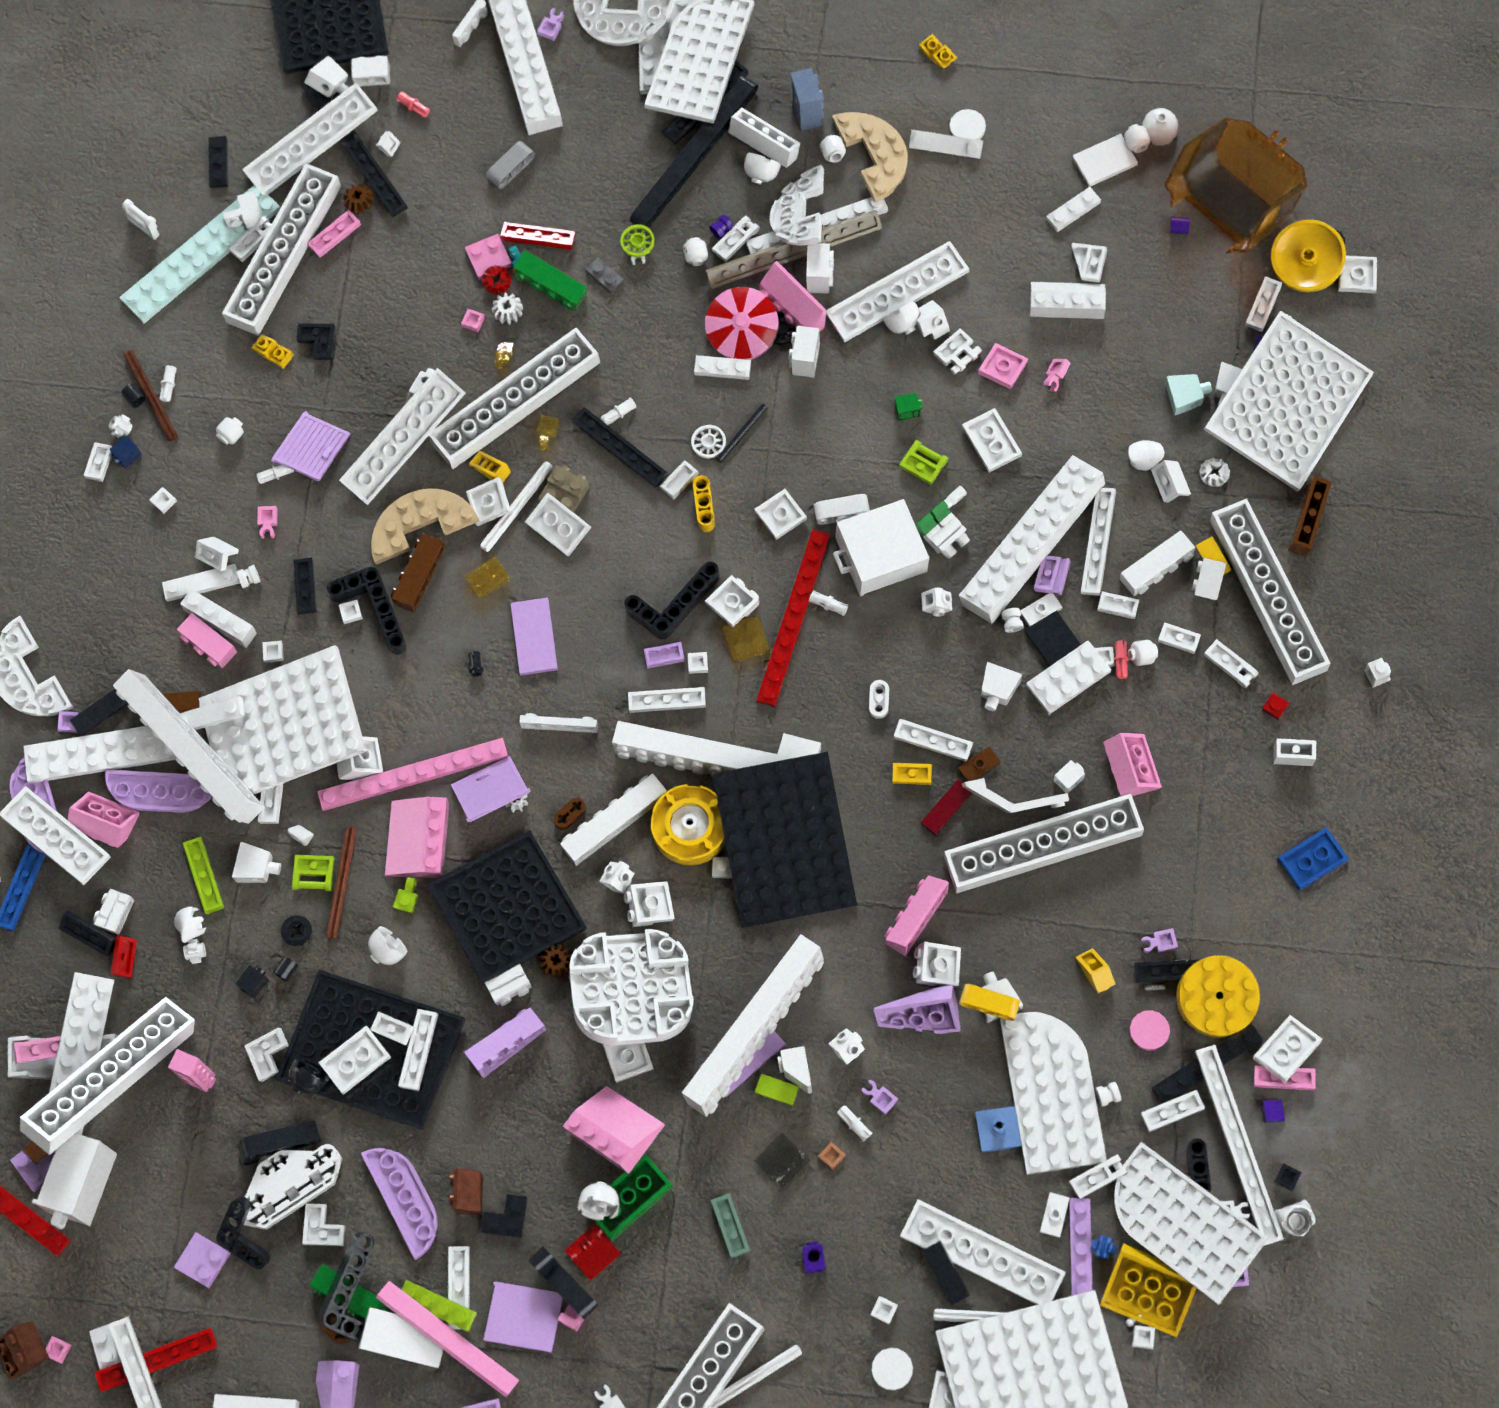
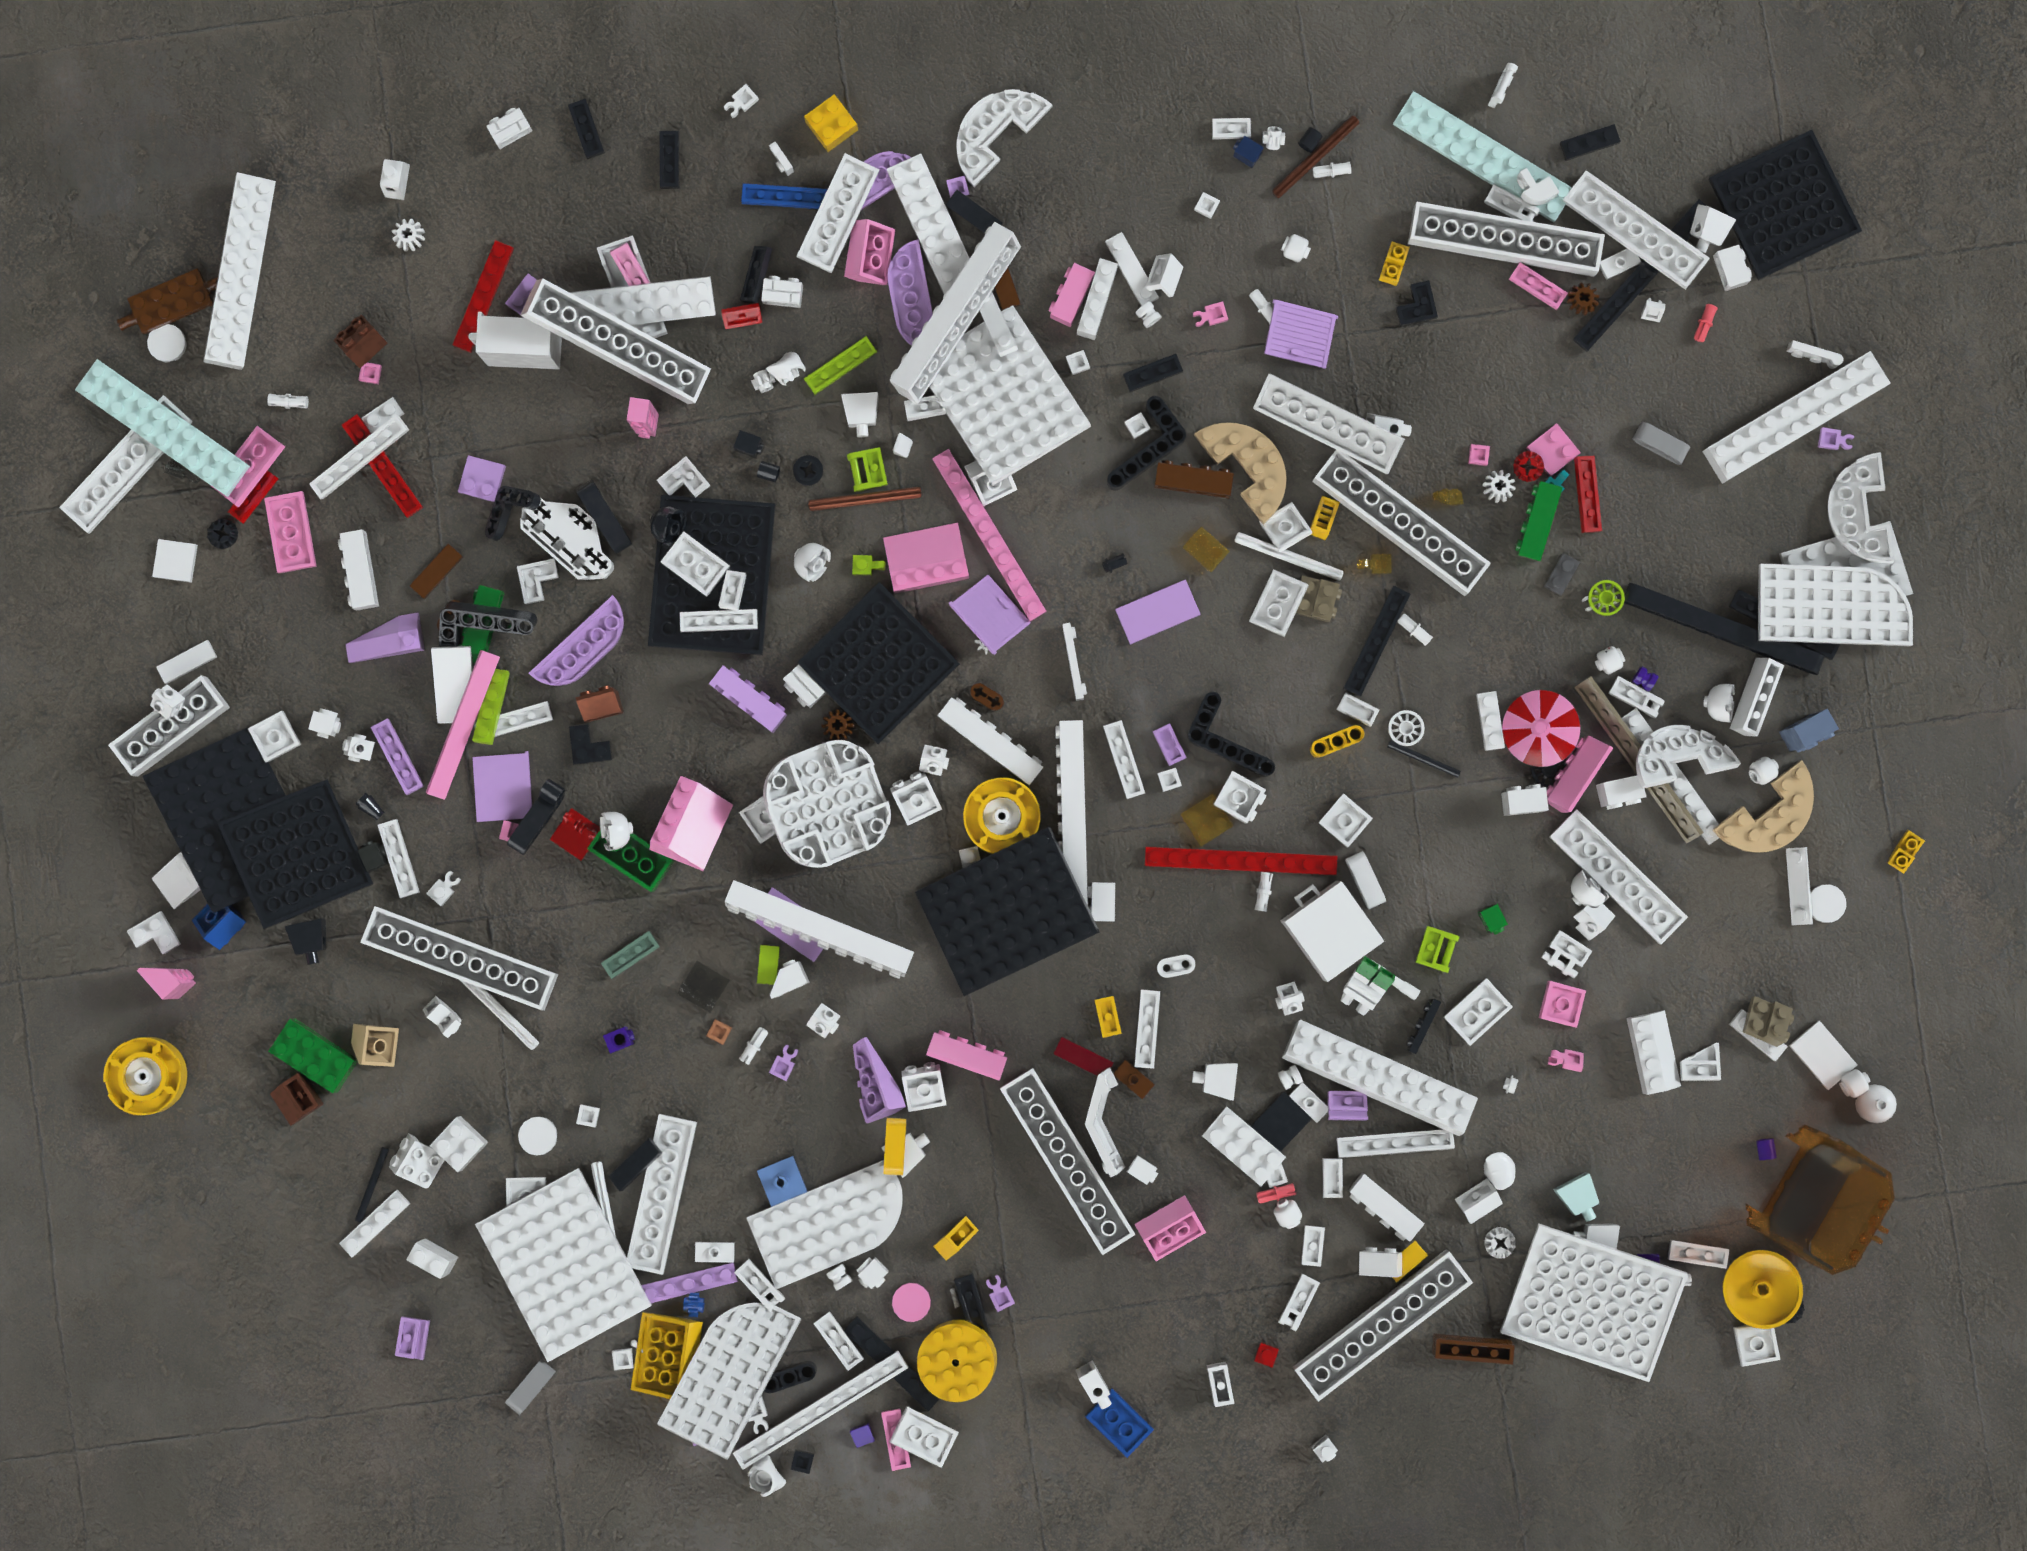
camera: 70 degrees right, 15 degrees up
(282, 1330) = (436, 571): none -> reddish brown tile
(336, 161) = (1619, 263): none -> white plate
(993, 490) = (1422, 1025): none -> black plate
(1063, 195) = (1768, 1021): none -> dark tan plate
(1067, 427) = (1510, 1084): none -> white plate
(1111, 1060) = (872, 1273): none -> white brick
(1269, 870) = (1091, 1379): none -> white torso

